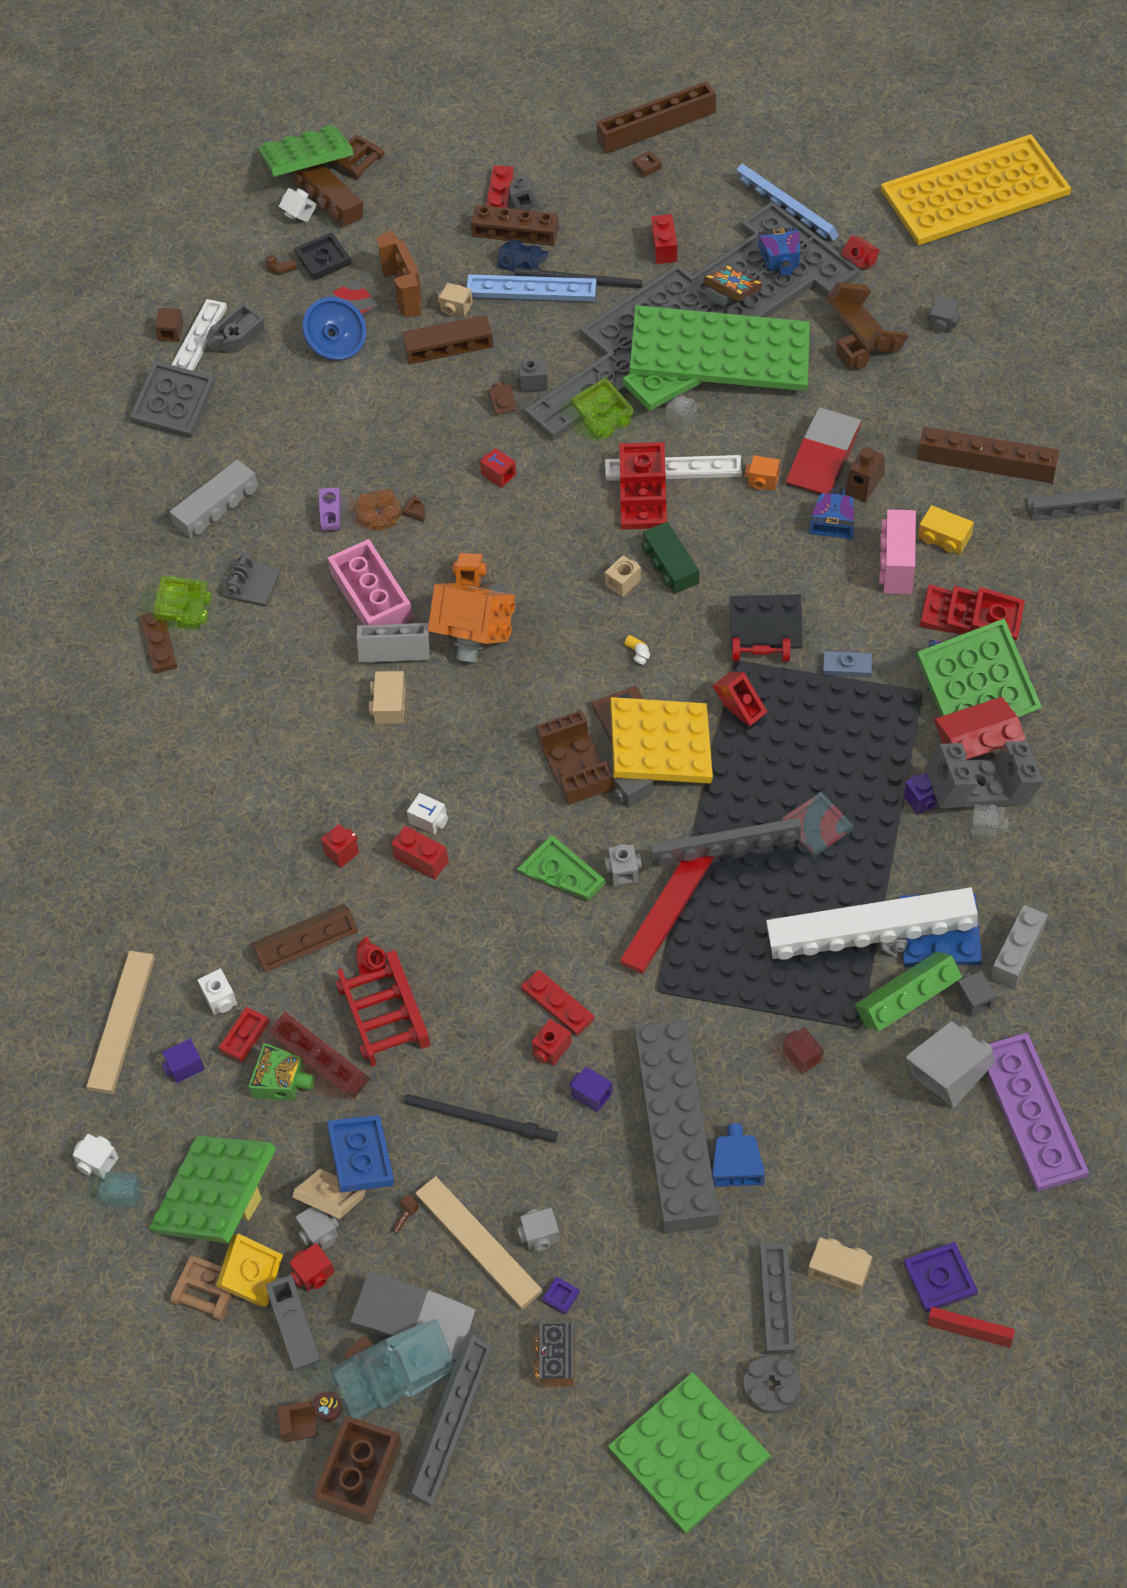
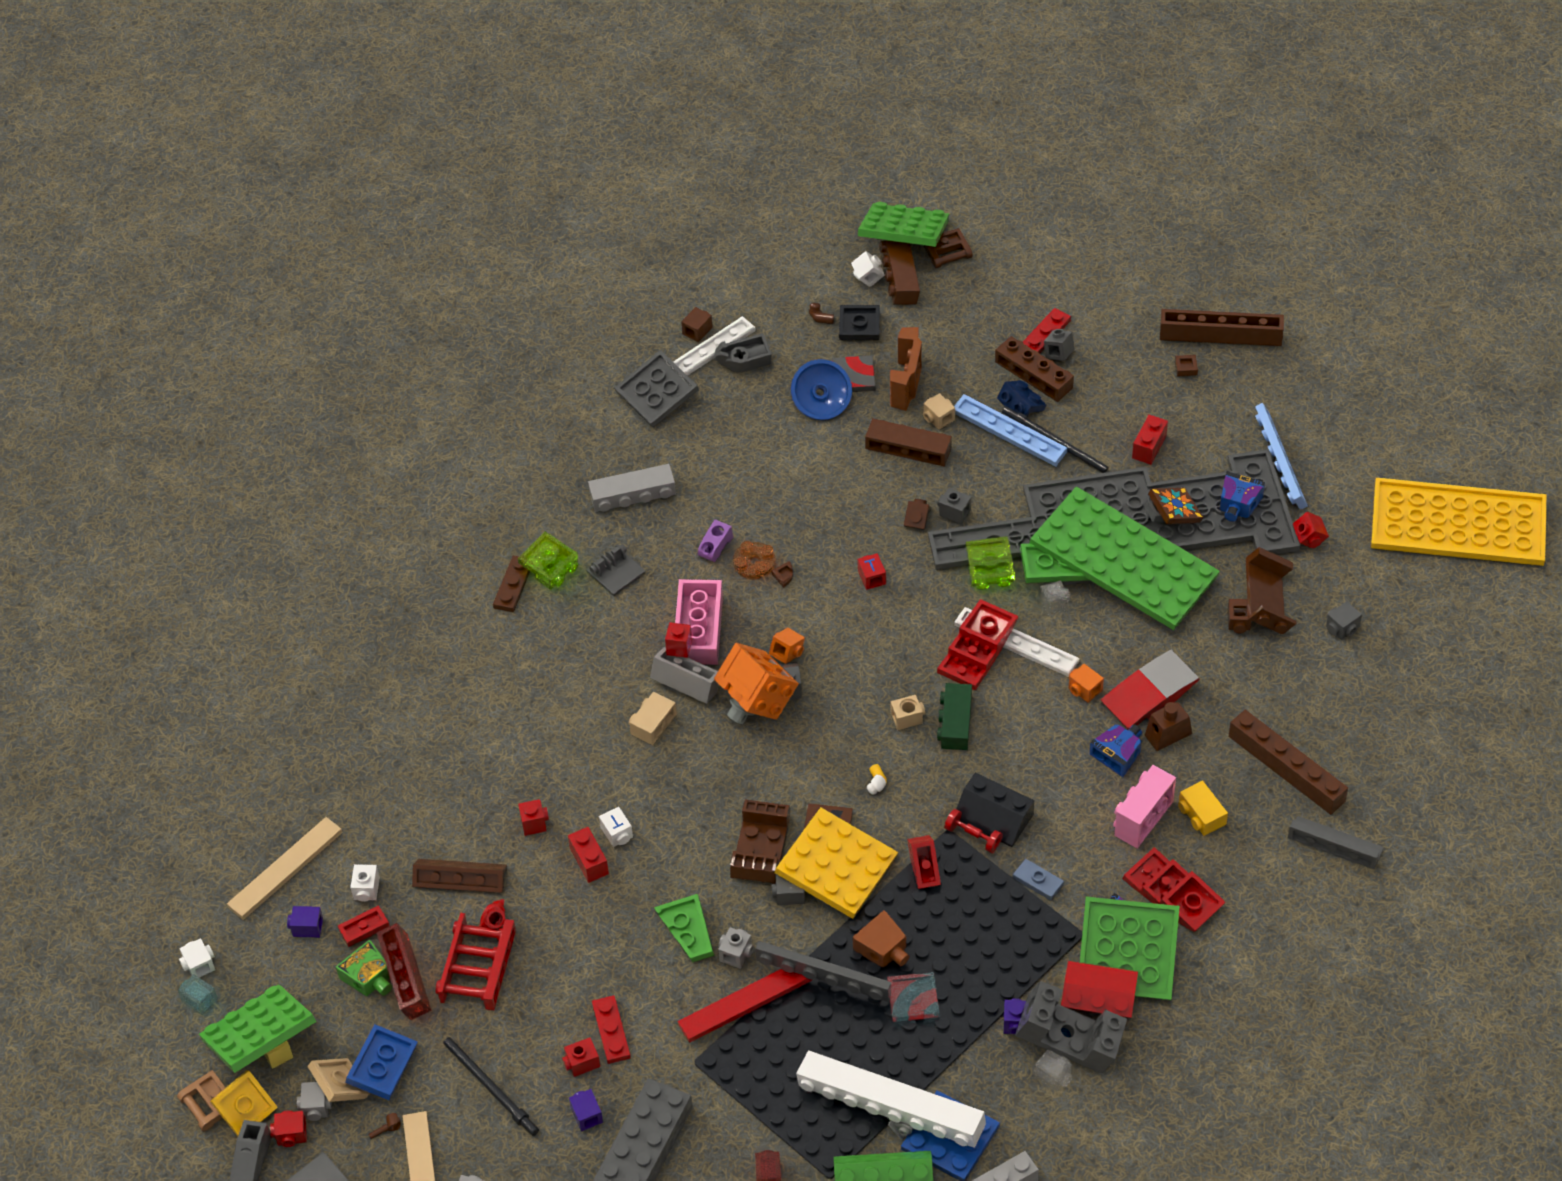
camera: 30 degrees right, 5 degrees down
(372, 610) = (678, 640): none -> red brick
(756, 788) = (881, 941): none -> dark orange torso

